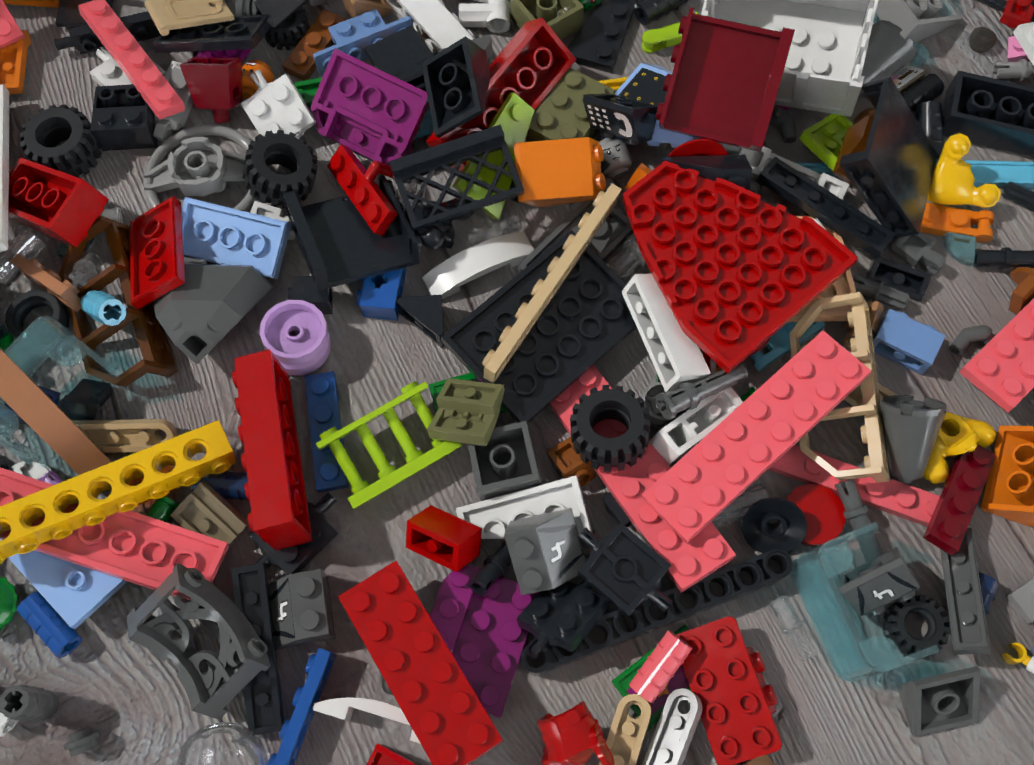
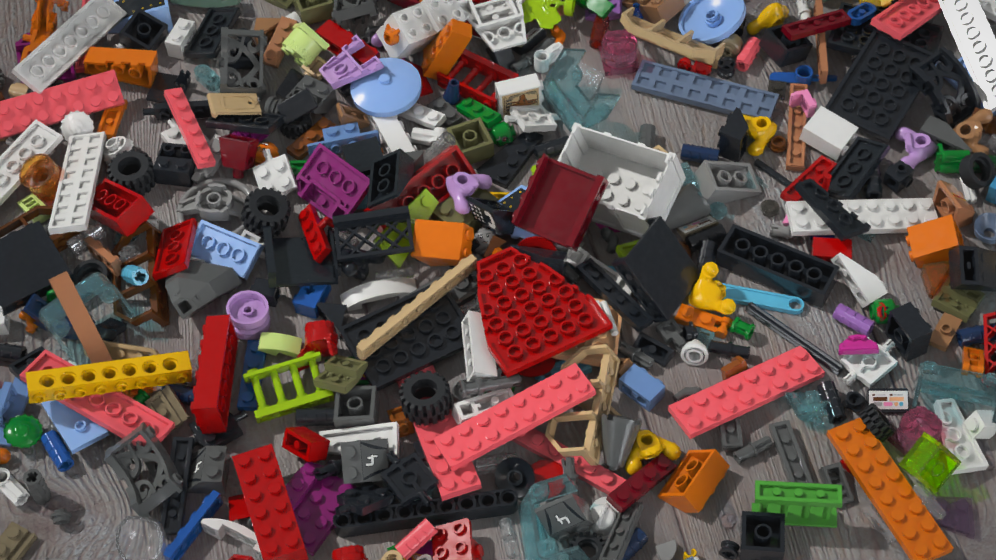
camera: 15 degrees right, 15 degrees down
(26, 103) = (116, 145): none -> white piece
(355, 373) = (279, 343): none -> yellowish green slope
(361, 665) = (237, 507): none -> red sticker
(416, 358) = (319, 337): none -> red helmet
(443, 483) = (315, 416): none -> black axle
(508, 25) = (443, 142): none -> clear axle
(566, 79) = (464, 185): none -> lavender head
(631, 160) = (494, 243): none -> reddish brown piece
(920, 555) = (603, 516): none -> white piece
(945, 243) = (689, 332): none -> black plate
(962, 273) = (694, 353): none -> white brick
(1004, 220) = (742, 328): none -> green bush

